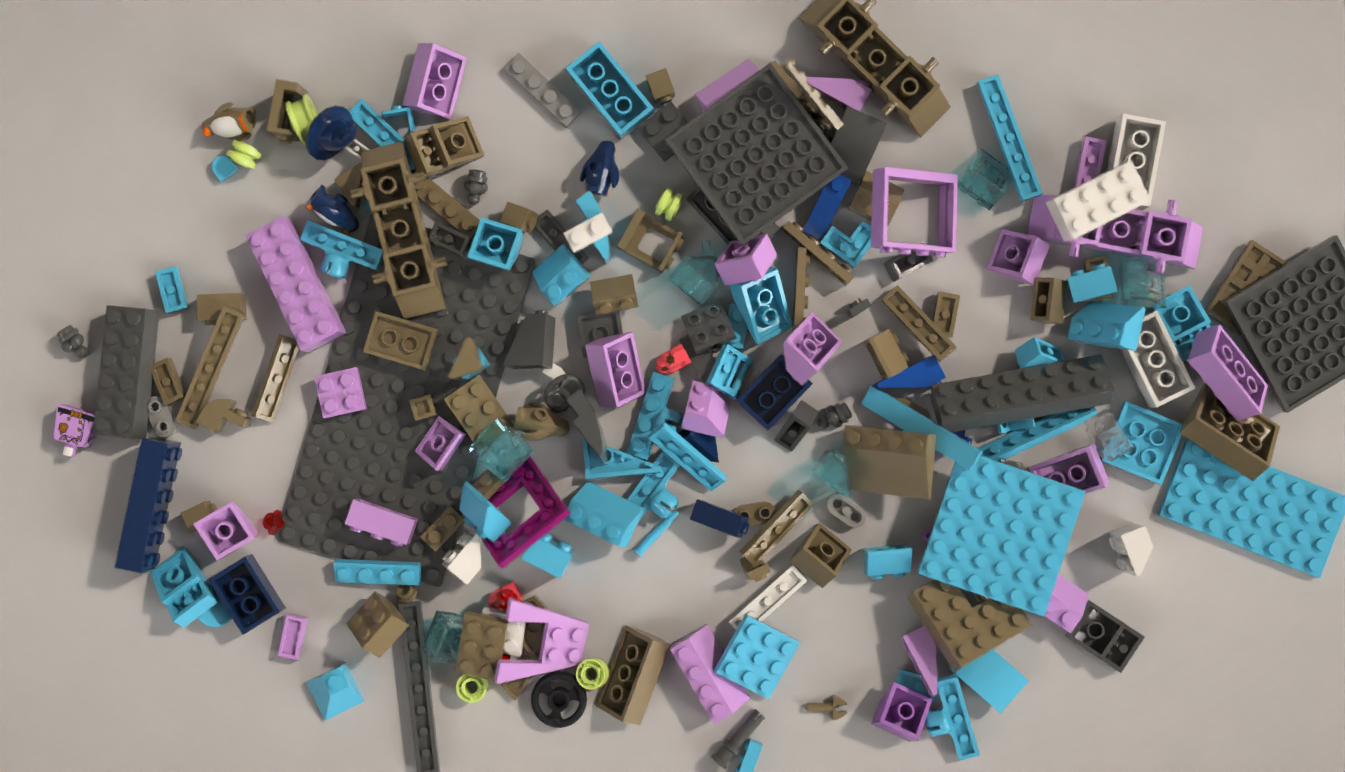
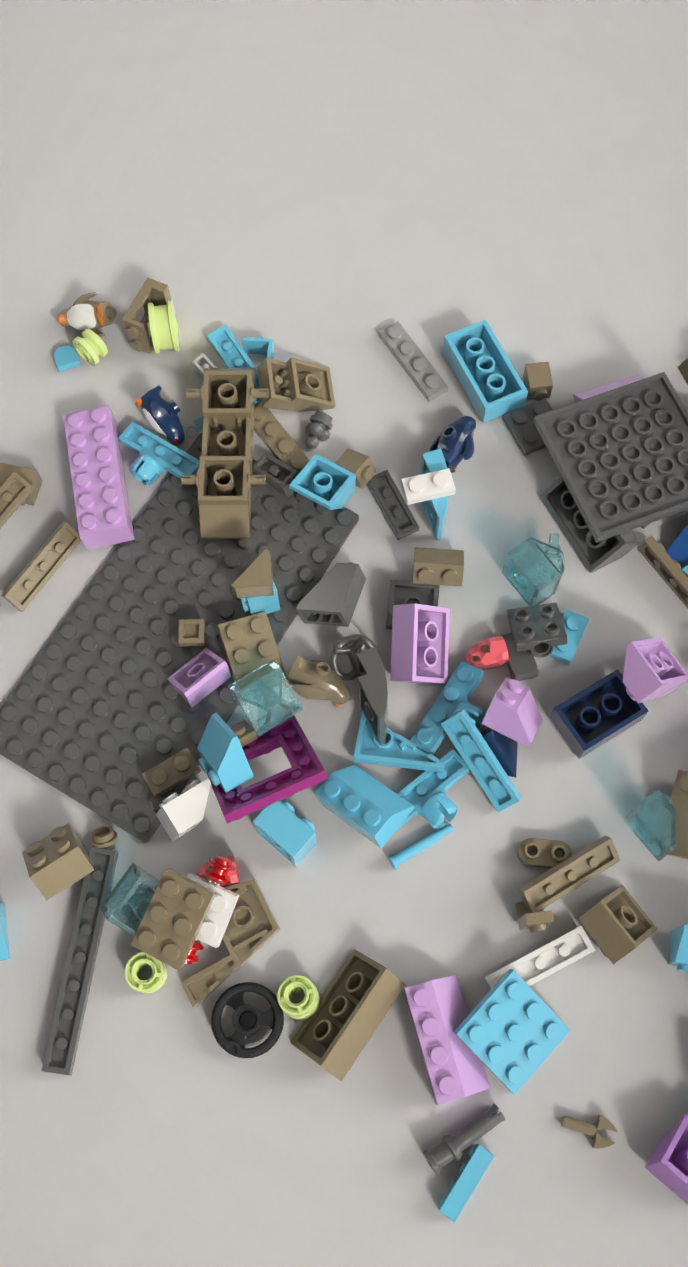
camera: 15 degrees right, 20 degrees down
(330, 133) = (183, 340): dark blue piece -> none
(340, 392) = (106, 597): lavender plate -> none
(350, 180) = (191, 406): dark tan slope -> none
(377, 572) = (79, 803): medium azure plate -> none
(381, 522) = (103, 745): lavender brick -> none
(400, 340) = (190, 558): dark tan plate -> none
(434, 80) = (305, 325): lavender slope -> none
(560, 275) = (385, 536): medium azure slope -> none
(560, 647) = (270, 947): lavender wing -> none
(636, 230) = (477, 512): dark tan window -> none
(669, 204) = (521, 491): yellowish green wheel -> none
(720, 518) = (503, 843): dark blue brick -> none
(725, 369) = (545, 676): medium azure plate -> none
(745, 262) = (597, 560): lavender brick -> none
(763, 306) = (603, 614): medium azure slope -> none
(796, 426) = (617, 761): dark grey slope -> none
(801, 282) = (653, 603): dark tan plate -> none
(835, 416) = (665, 762): dark grey piece -> none
(845, 510) = (660, 875): light grey plate -> none

